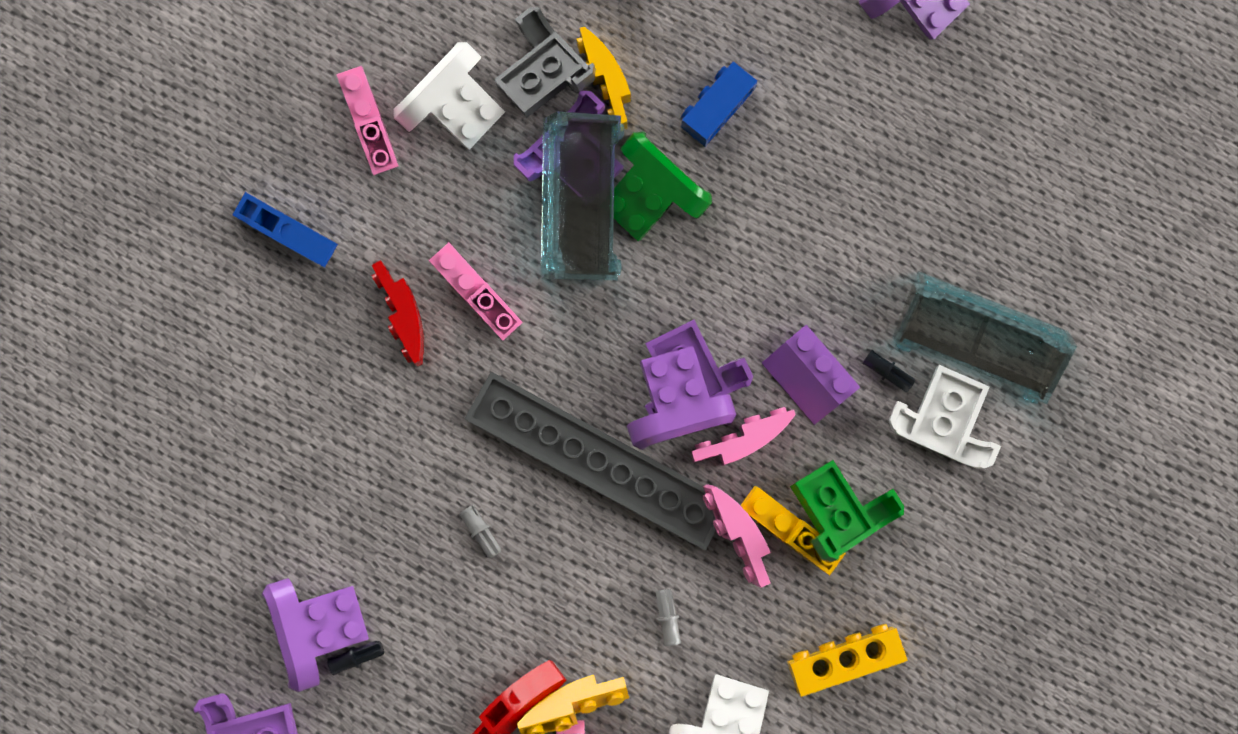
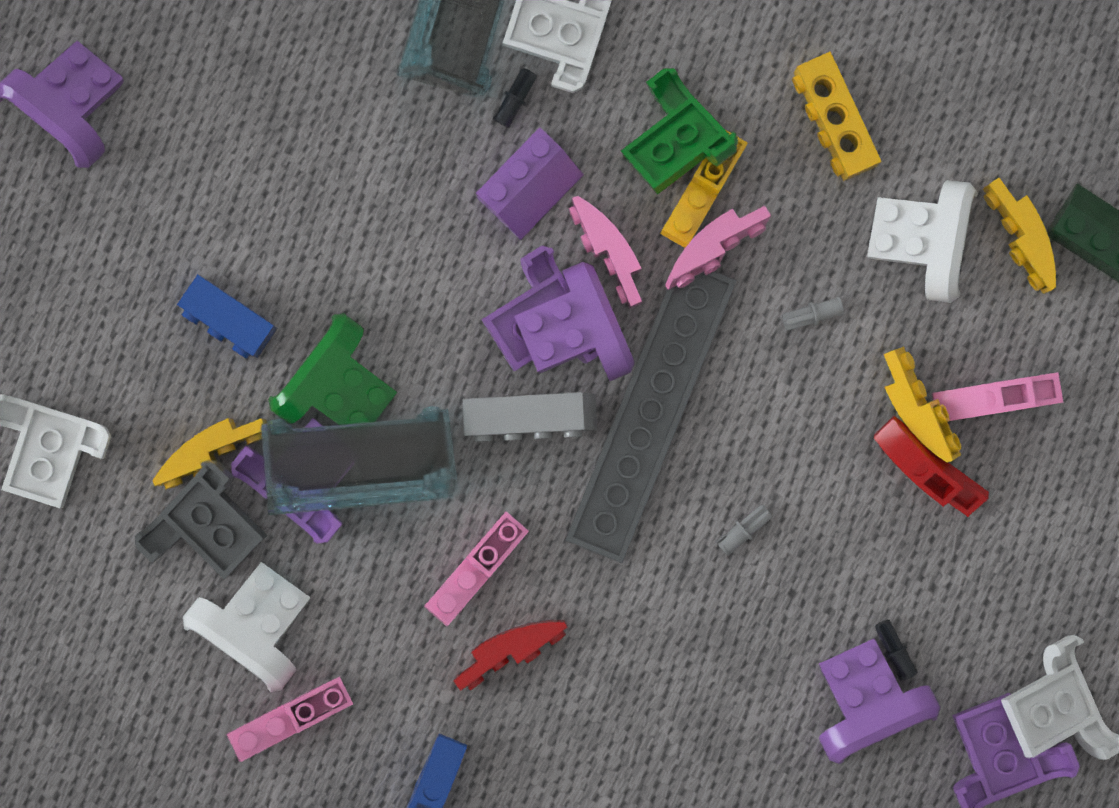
camera: 100 degrees left, 5 degrees up
(603, 353) = (530, 415): none -> light grey wedge

